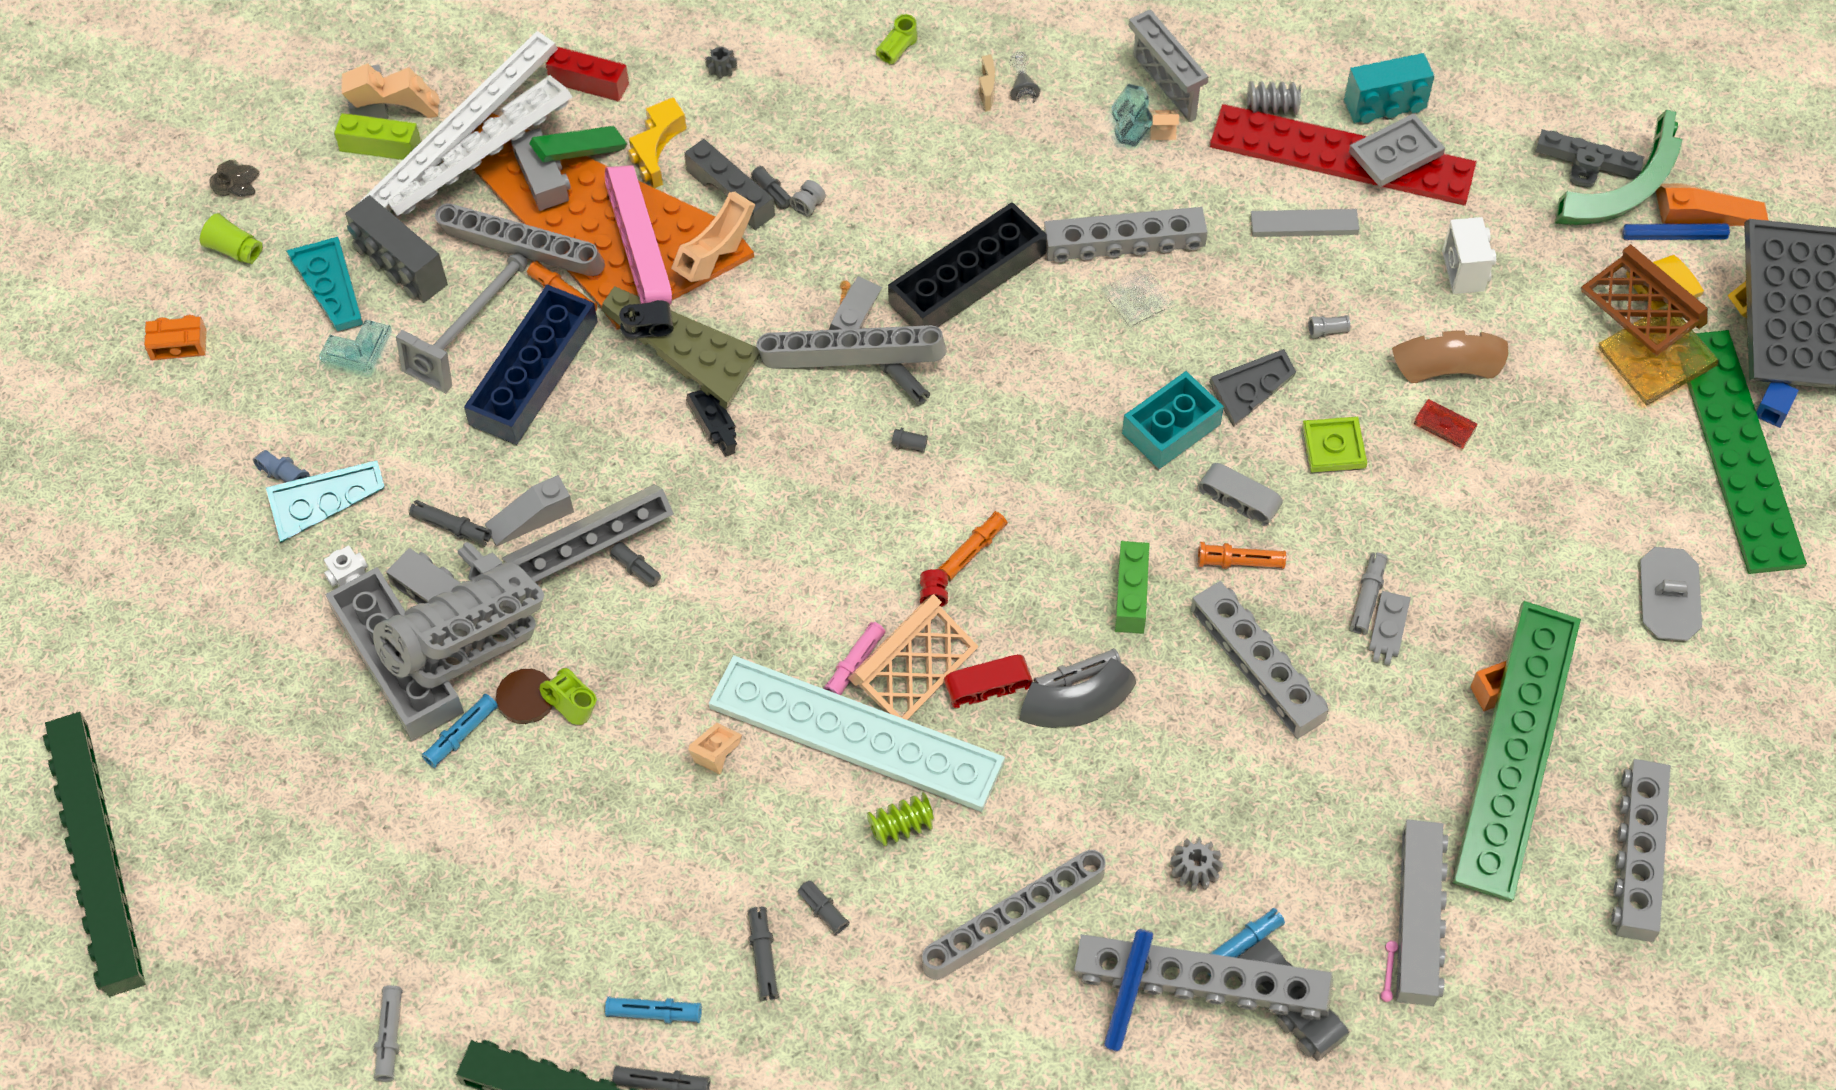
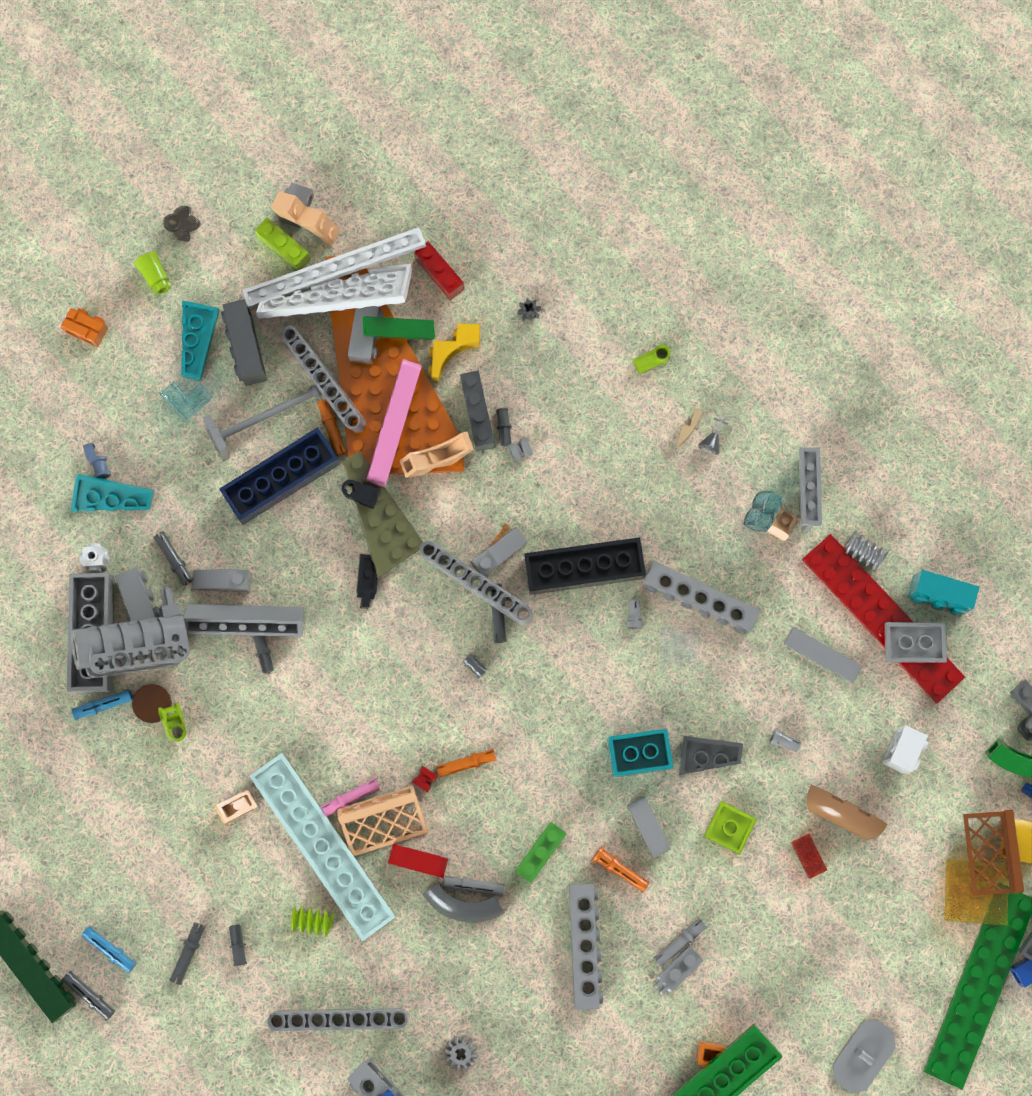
camera: 30 degrees right, 20 degrees up
(1062, 294) = (634, 620): none -> light grey pin

